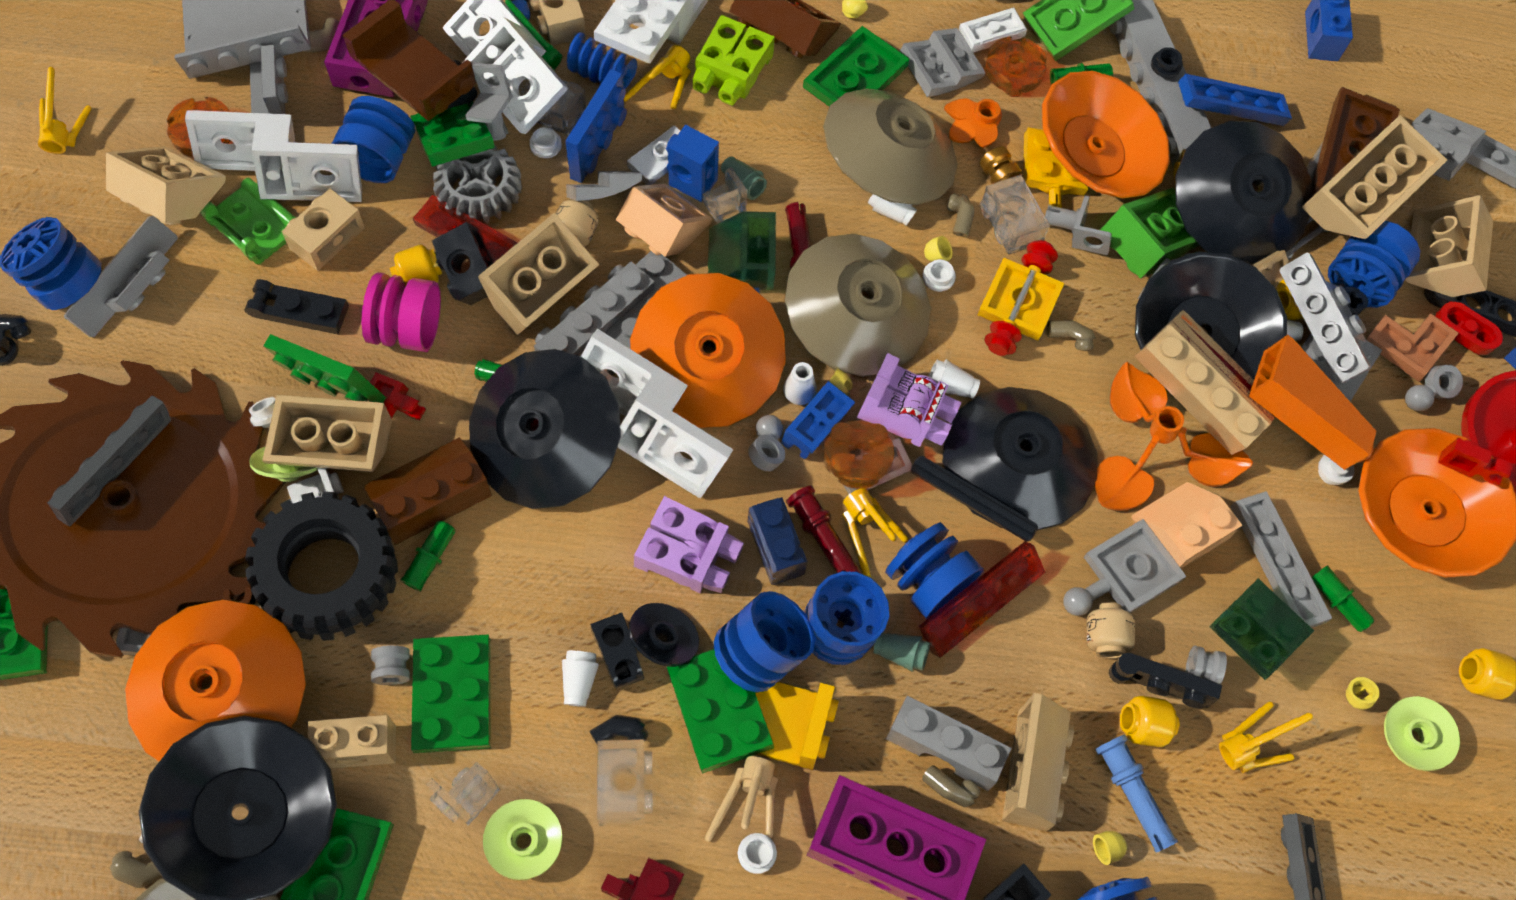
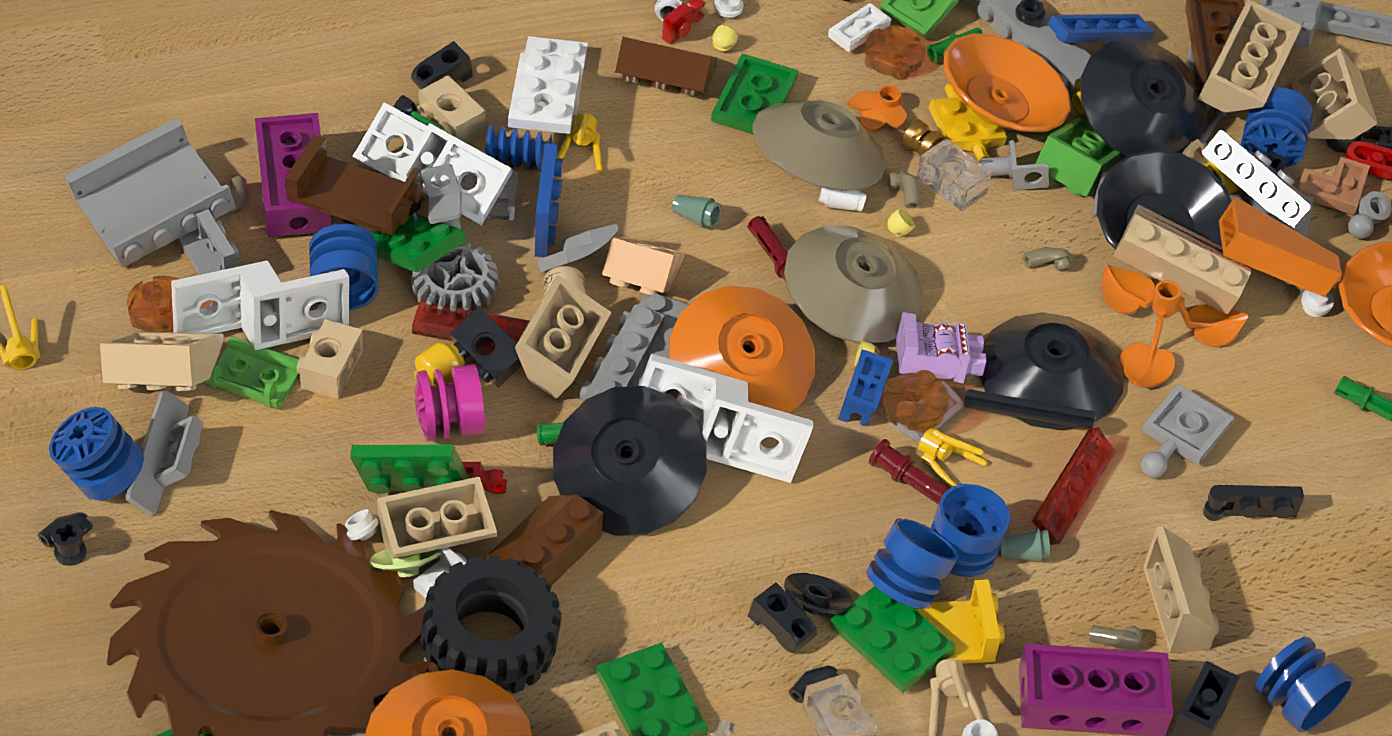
camera: 20 degrees left, 15 degrees down
(109, 461) = (254, 586): dark grey plate -> none
(297, 307) = (336, 432): black plate -> none
(390, 665) = (588, 691): light grey wheel -> none
(428, 556) = (574, 597): green axle -> none
(545, 143) = (498, 230): white plate -> none
(578, 677) = (758, 649): white cone -> none
(653, 158) = (612, 208): white plate -> none
(686, 546) = (802, 520): lavender hips -> none
(692, 162) = (650, 207): blue brick -> none
(726, 199) = (692, 231): clear panel -> none
(731, 60) = (637, 123): lime hips -> none
(745, 248) = (731, 260): clear green slope -> none
(766, 450) = (829, 425): light grey plate -> none
(777, 541) = (877, 491): dark blue brick -> none
(800, 384) = (835, 363): white cone -> none
(928, 563) = (1019, 468): blue wheel -> none
(939, 275) = (911, 242): white plate -> none
(942, 62) = (827, 66): light grey slope -> none
(958, 380) = (976, 323): white cone -> none
(966, 749) = (1074, 595): light grey arch -> none
(1021, 298) = (992, 241): yellow plate -> none
(1109, 846) = (1266, 641): light yellow hinge -> none
(1110, 631) = (1191, 478): tan head -> none
(1128, 775) = (1256, 582): medium blue pin -> none
(1149, 721) = (1255, 536): yellow head -> none
(1189, 522) = (1219, 375): light nougat slope -> none
(1206, 664) = (1283, 476): light grey wheel -> none
(1241, 750) = (1338, 535): yellow plant -> none
(1261, 628) = (1314, 434): clear green slope -> none
(1280, 558) = (1305, 385): light grey plate -> none

